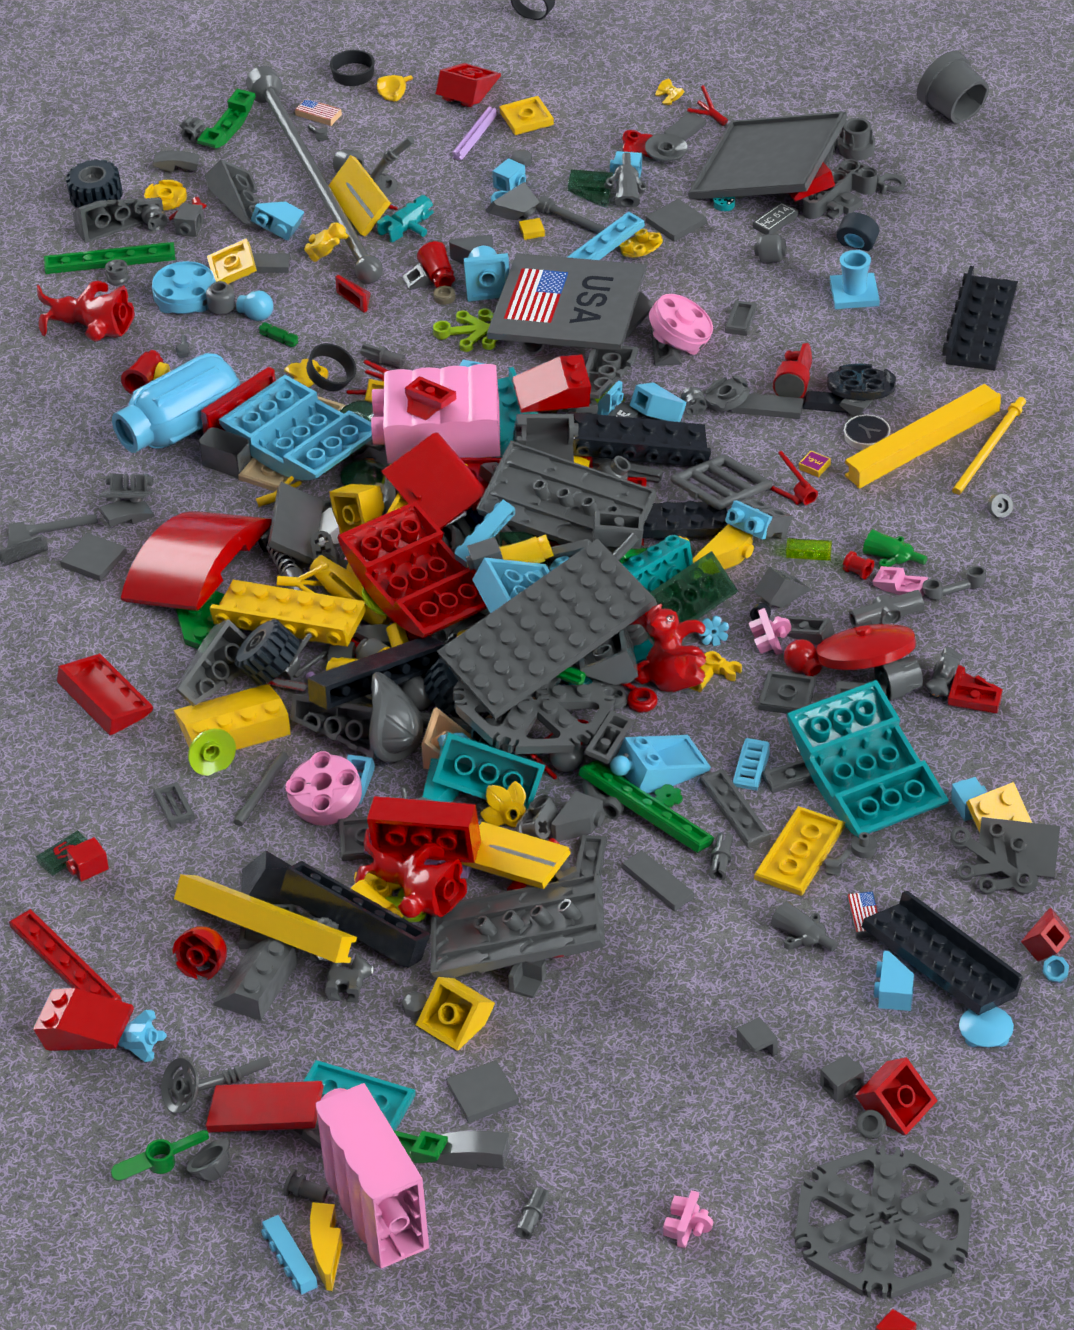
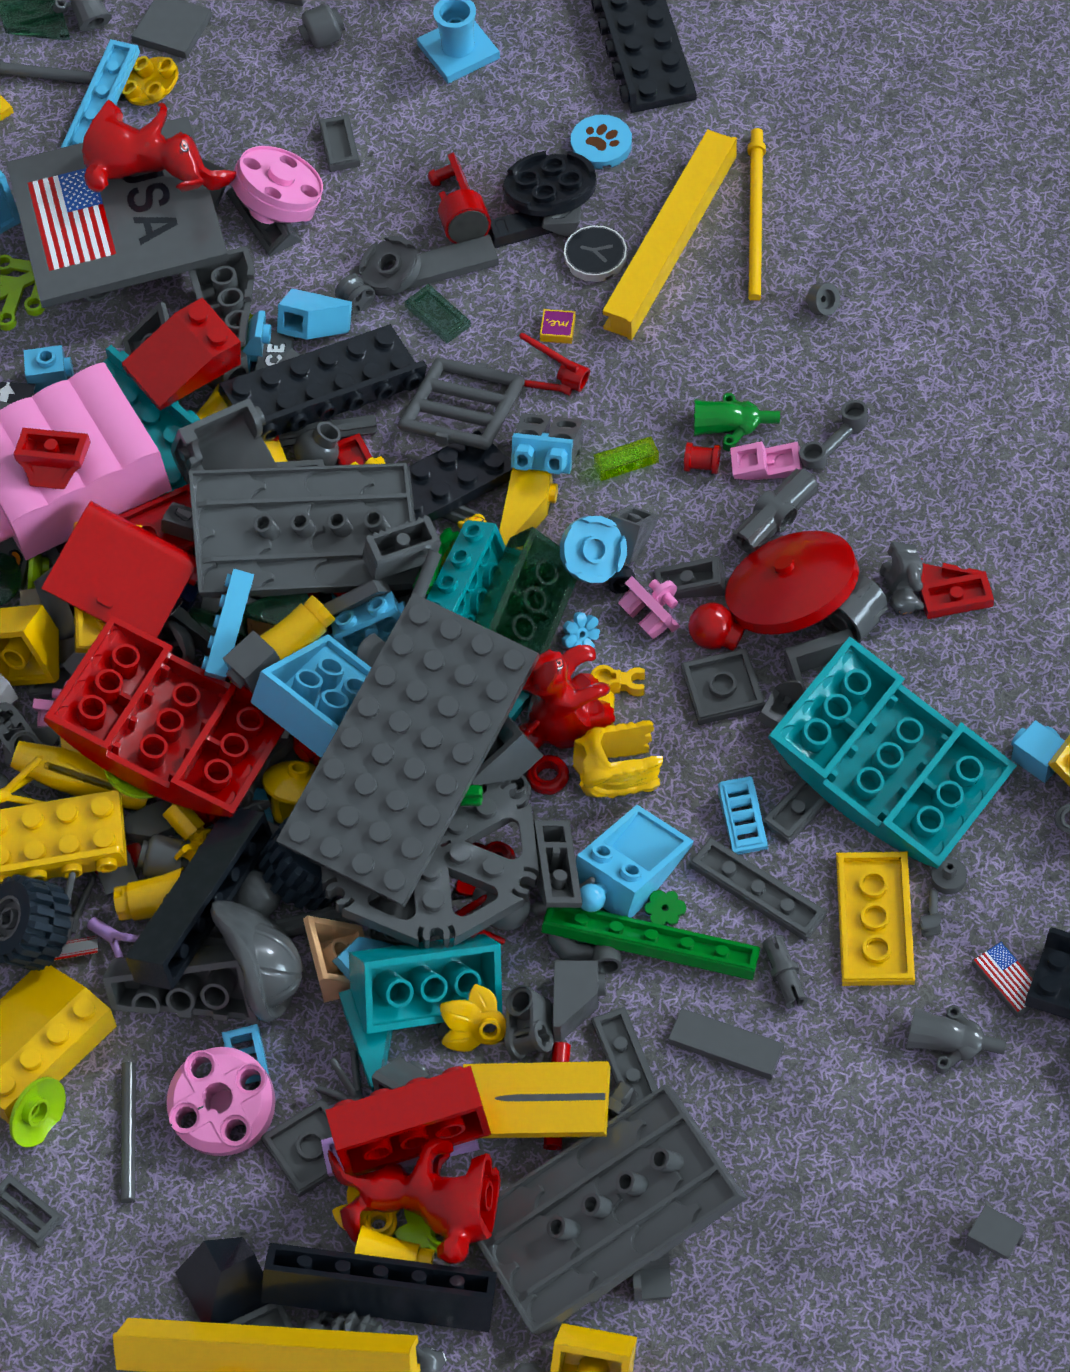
camera: 25 degrees left, 15 degrees up
(586, 263) = (119, 150): none -> red animal
(688, 702) = (619, 778): none -> yellow piece
(741, 431) = (437, 313): none -> tile
(746, 581) = (592, 549): none -> medium azure tile
(914, 372) = (602, 140): none -> medium azure tile

